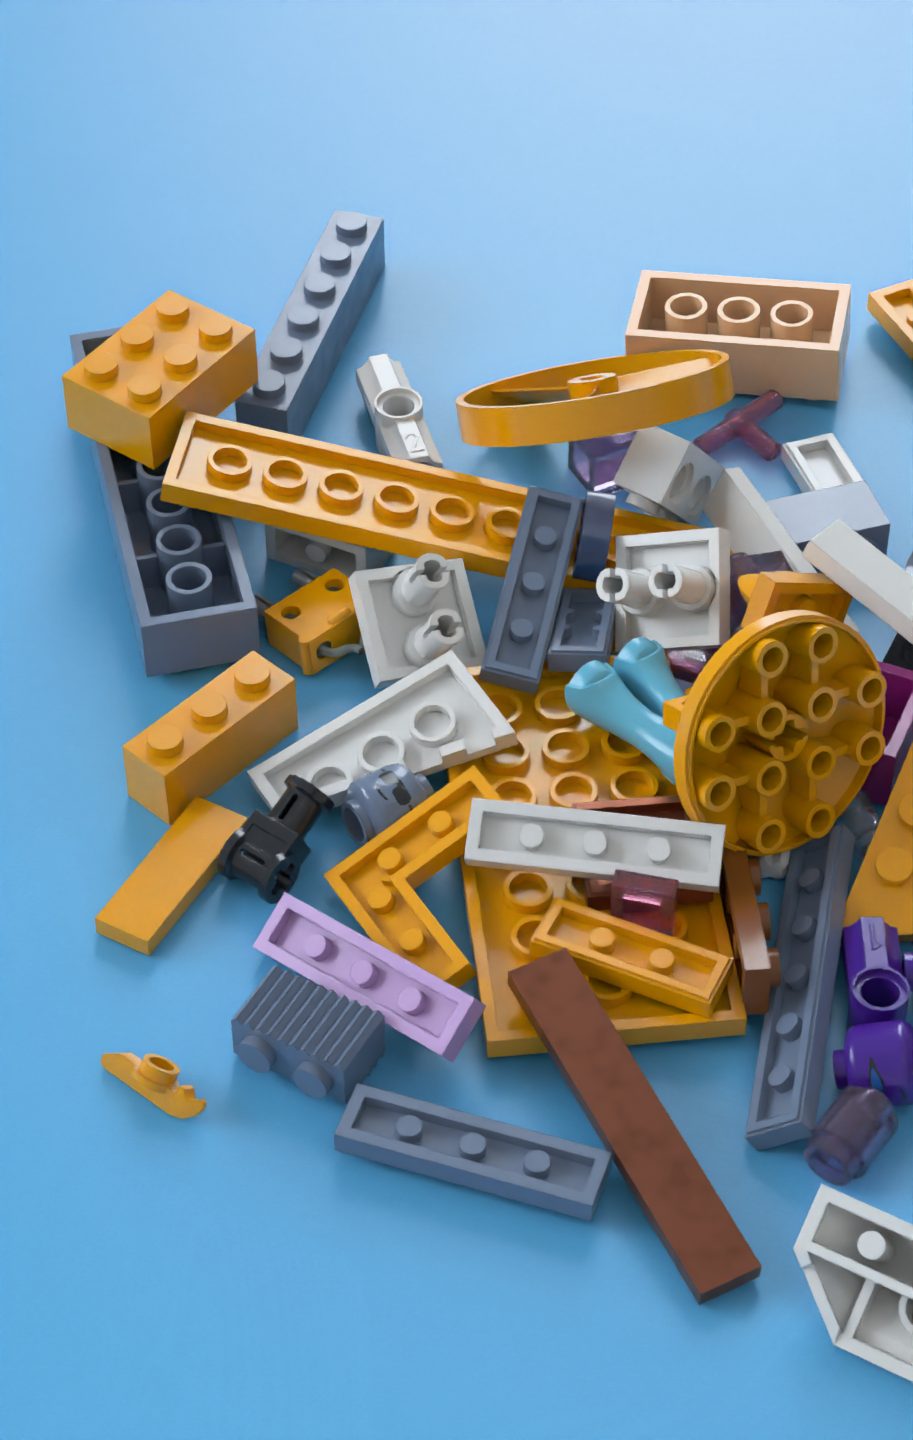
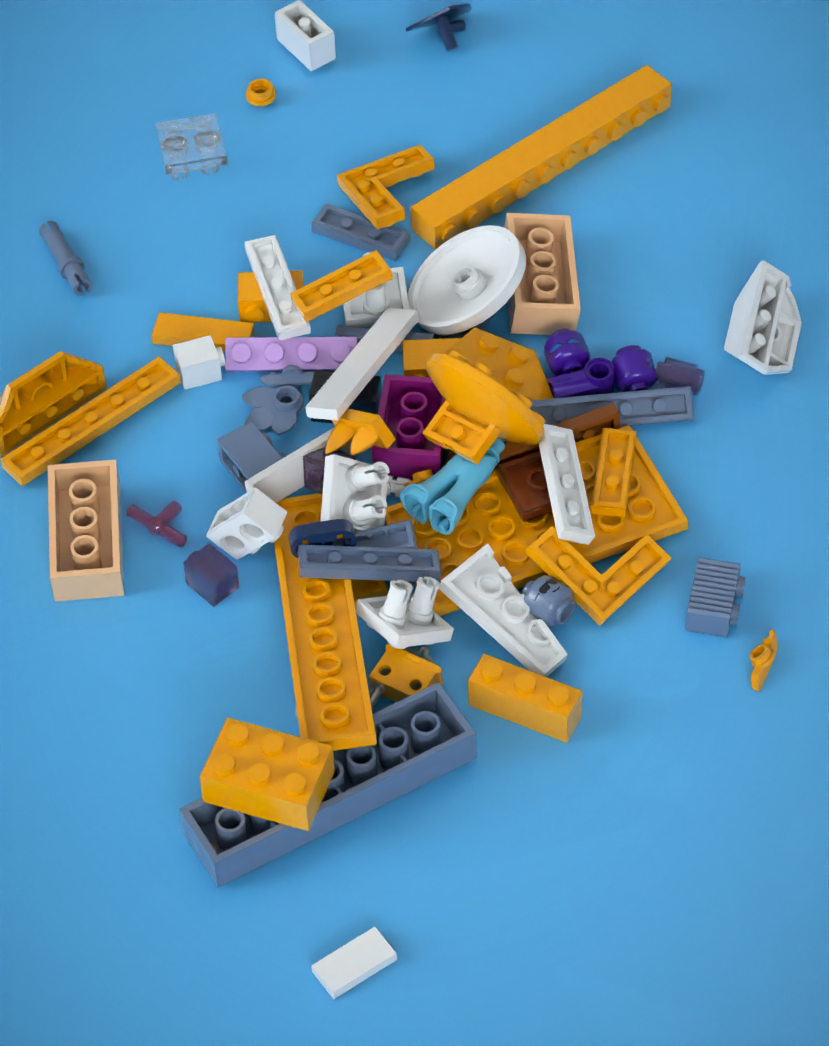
camera: 105 degrees left, 5 degrees up
(169, 877) = (626, 695): light orange tile -> none
(275, 841) = (592, 644): black connector -> none
(315, 324) = (118, 755): sand blue brick -> none
(371, 974) = (669, 577): lavender plate -> none
(396, 412) = (214, 687): white piece -> none
(473, 1151) = (752, 515): sand blue plate -> none
(595, 398) = (256, 545): light orange piece -> none
(634, 1127) = (710, 456): copper tile -> none
(645, 900) = (587, 464): clear pink tile -> none
(818, 463) = (193, 476): white tile -> none

